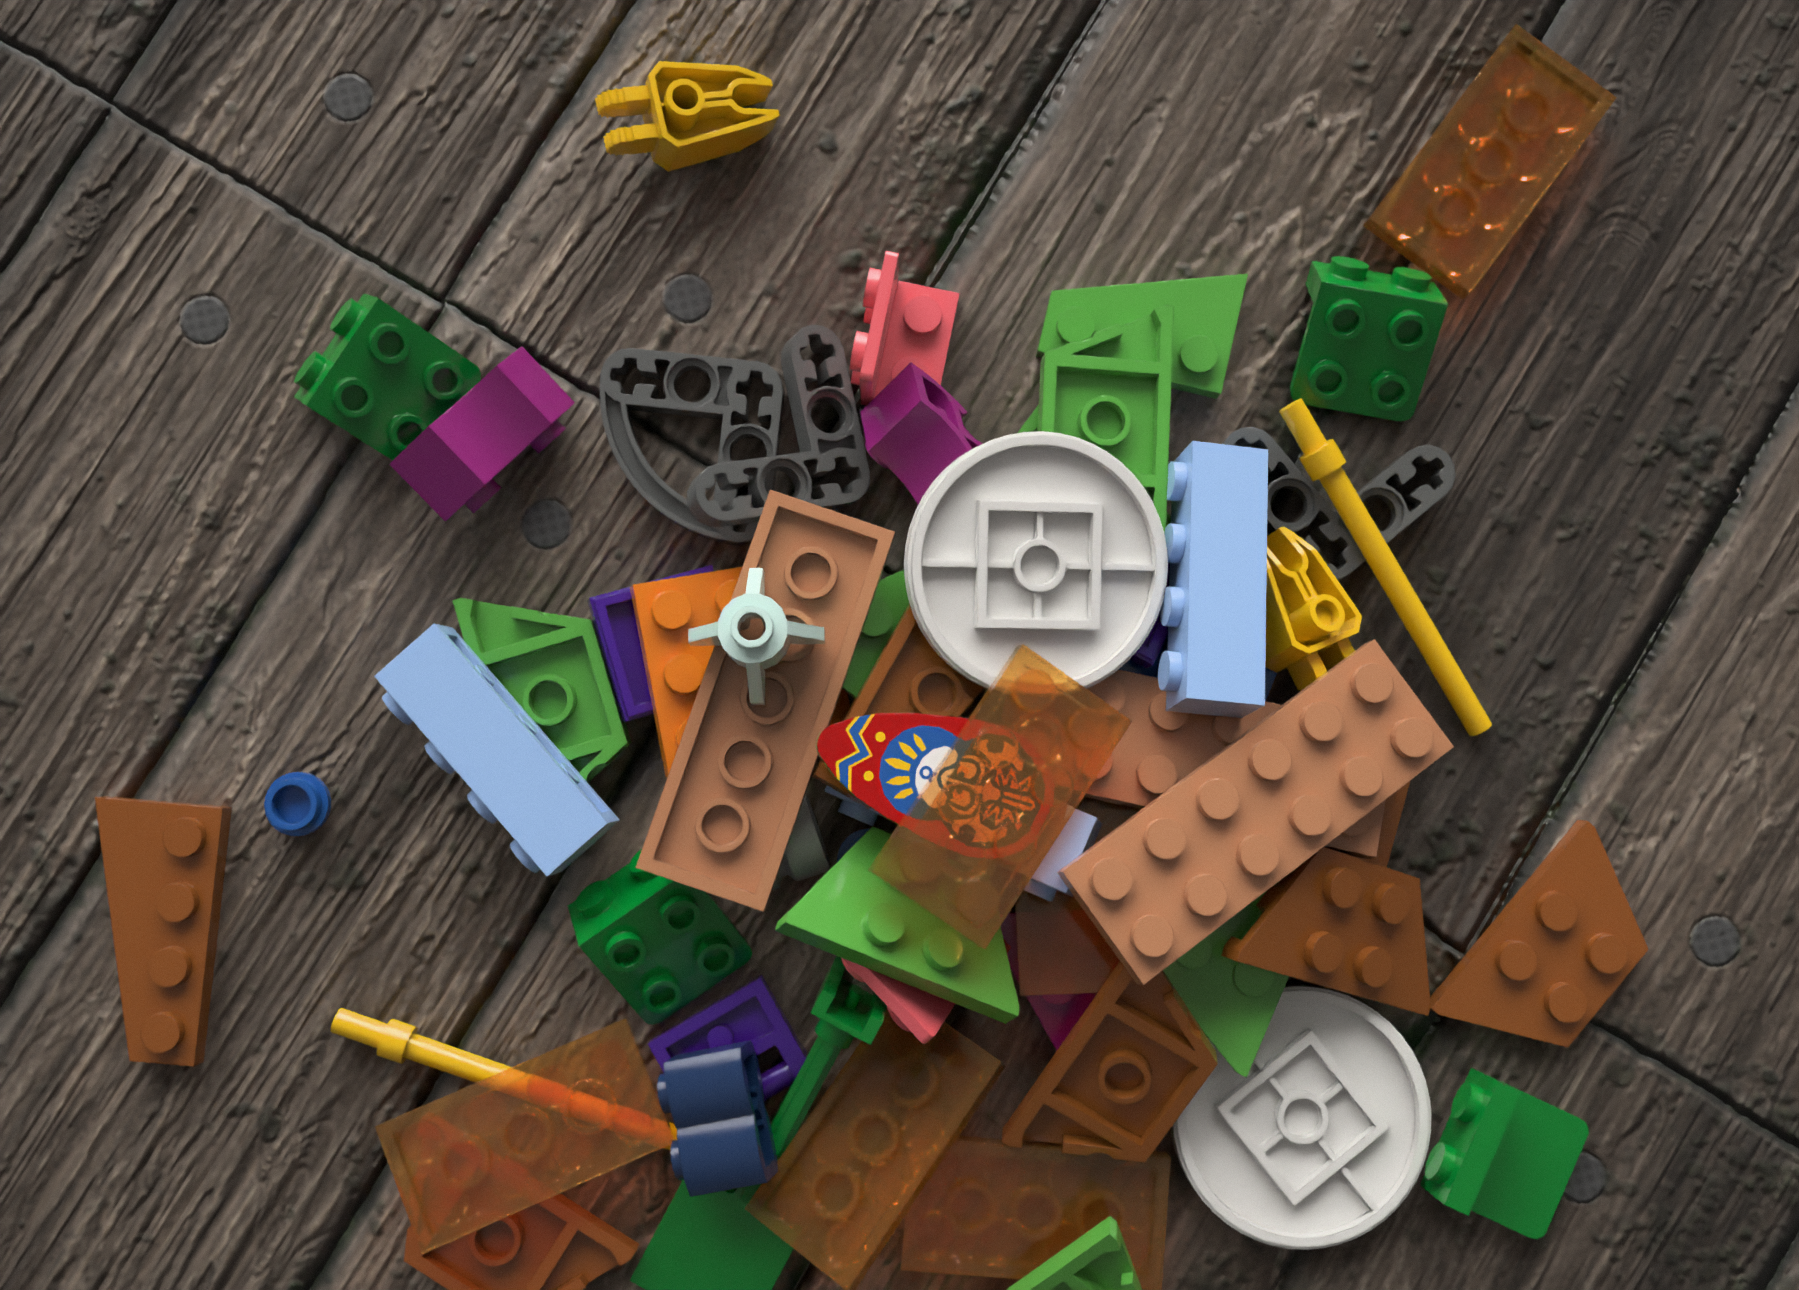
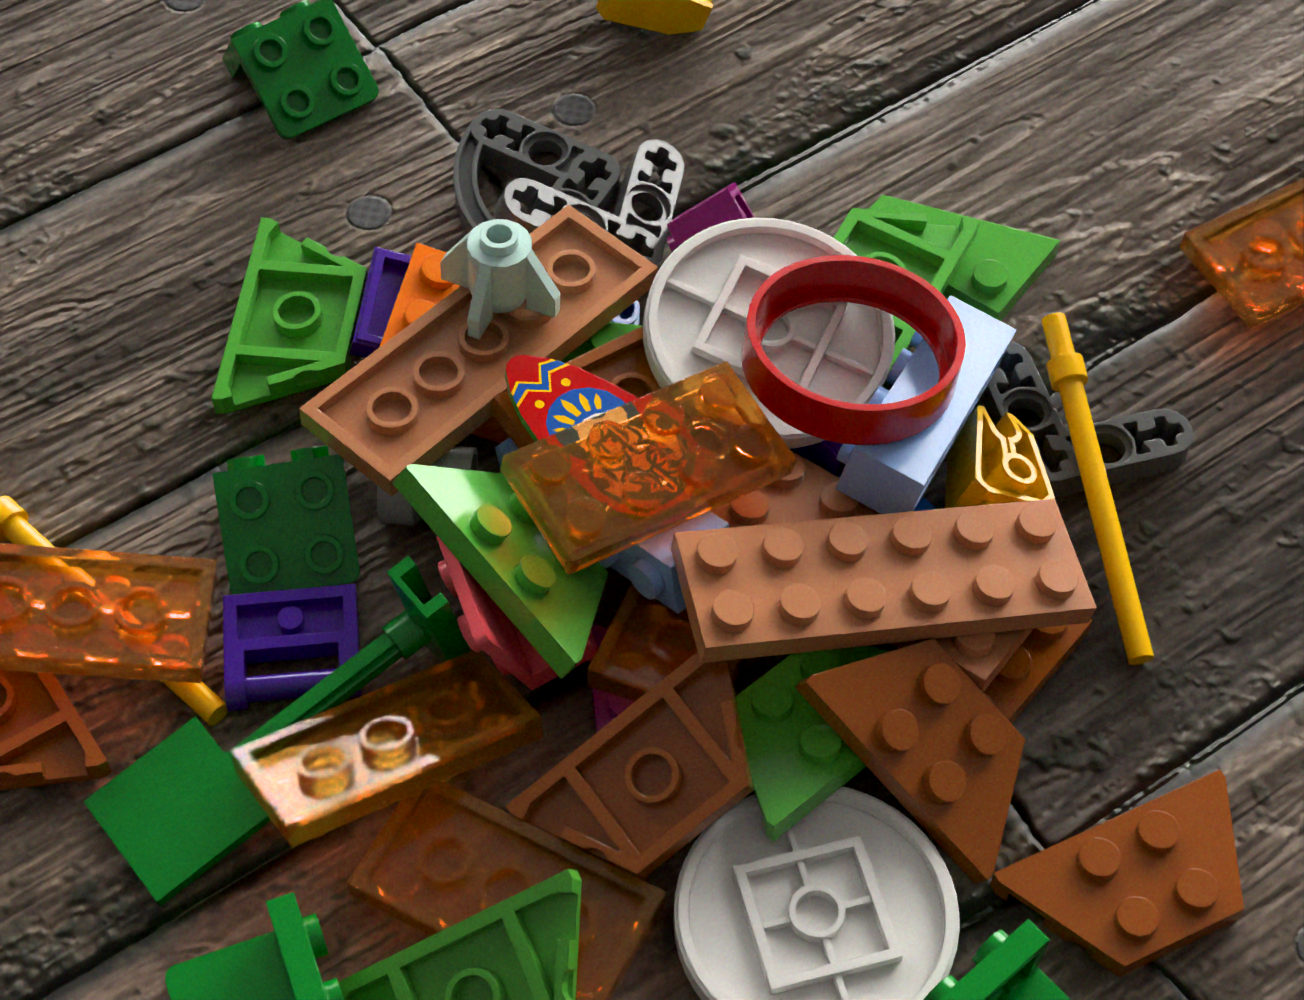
camera: 30 degrees right, 30 degrees down
(297, 803) = (40, 315): blue plate -> none
(482, 434) = (356, 116): magenta brick -> none
(495, 749) = (235, 317): light blue brick -> none
(718, 1119) = (253, 657): dark blue brick -> none
(905, 327) = (726, 154): coral bracket -> none
(1192, 499) = (865, 283): none -> red piece
(1367, 339) = (1146, 319): green bracket -> none

